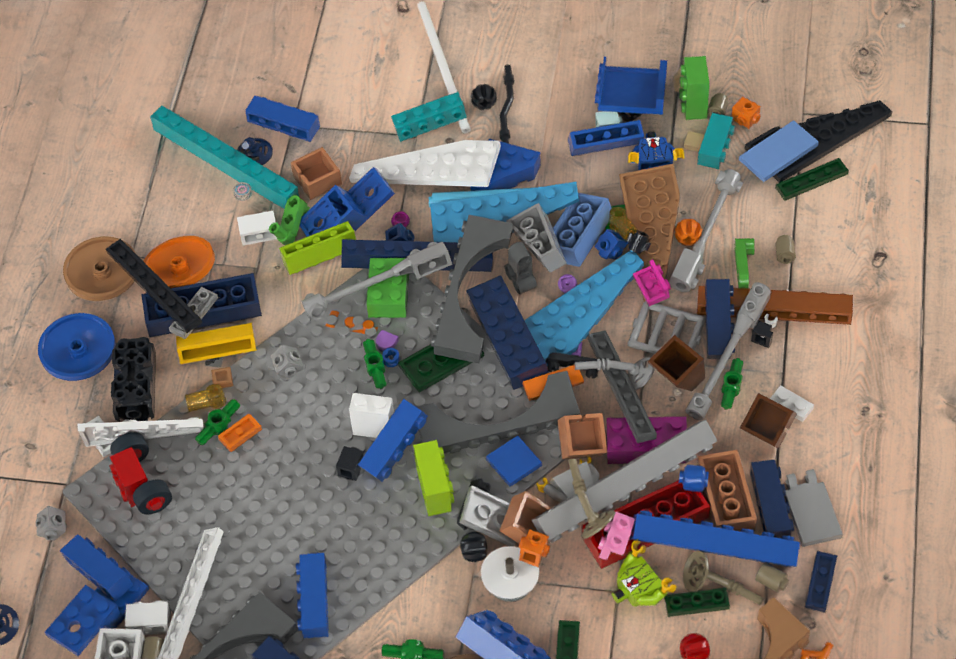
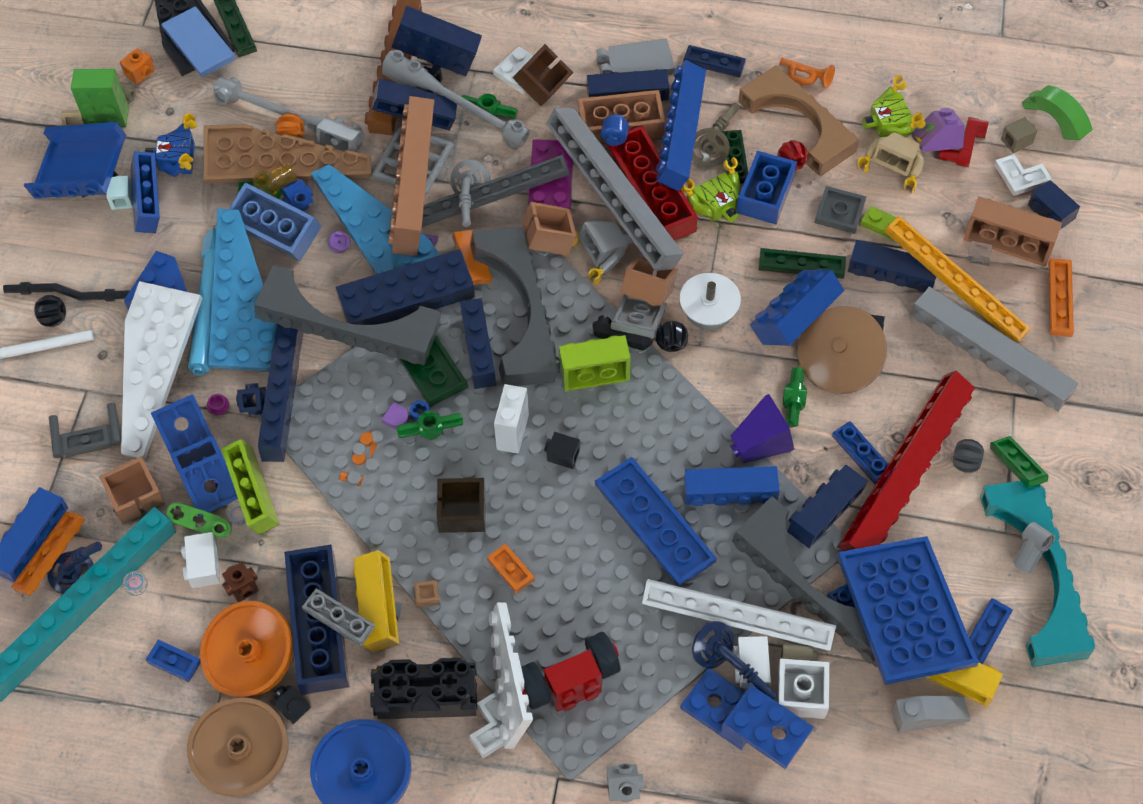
camera: 90 degrees left, 5 degrees up
(97, 567) = (690, 719): blue brick -> none
(133, 299) = (290, 703): none -> black bracket
(154, 286) = (289, 666): black tile -> none
(157, 586) = (724, 649): none -> dark blue dish
(175, 222) = (173, 660): none -> blue plate
(206, 398) = (460, 608): clear yellow piece -> none
(213, 428) = (486, 585): green axle -> none
(237, 253) = (240, 581): none -> copper brick
(267, 133) = (48, 553): none -> orange plate
(280, 537) = (655, 522): none -> blue plate
(286, 361) = (419, 515): light grey brick -> none
(292, 395) = (461, 505): none -> dark brown piece
(366, 141) = (87, 439): none -> dark grey plate
(366, 619) = (762, 433): none -> dark purple slope
(389, 296) = (324, 409): bright green brick -> none
(393, 440) = (546, 398): blue brick -> none
(418, 262) = (310, 362): light grey bar -> none
(429, 116) = (70, 365): teal brick -> none
(458, 390) = (478, 343): none -> dark blue brick
(513, 461) = (570, 294): blue tile -> none
(520, 268) = (320, 276): dark grey piece -> none
(533, 548) = (691, 267): orange brick -> none
(538, 236) = (292, 244): light grey wedge -> none
(555, 360) = (451, 224): black piece -> none
(595, 520) = (659, 211): dark tan dish -> none
(617, 535) = (682, 195): bright pink bracket -> none
(629, 320) = (412, 175): none -> nougat brick
(638, 242) = (305, 163): black gear -> none
(651, 624) = (766, 187): none -> blue brick
(652, 284) = (360, 156): dark pink bracket -> none
(679, 364) = (473, 134): reddish brown slope -> none
(693, 141) = (161, 118): tan tile -> none
(716, 141) = (167, 96): teal brick -> none
(742, 248) = (319, 86): bright green beam -> none
(772, 577) = (713, 93): dark tan brick -> none
(785, 249) = (326, 50): dark tan brick -> none
(792, 320) = (436, 41): none -> dark blue brick

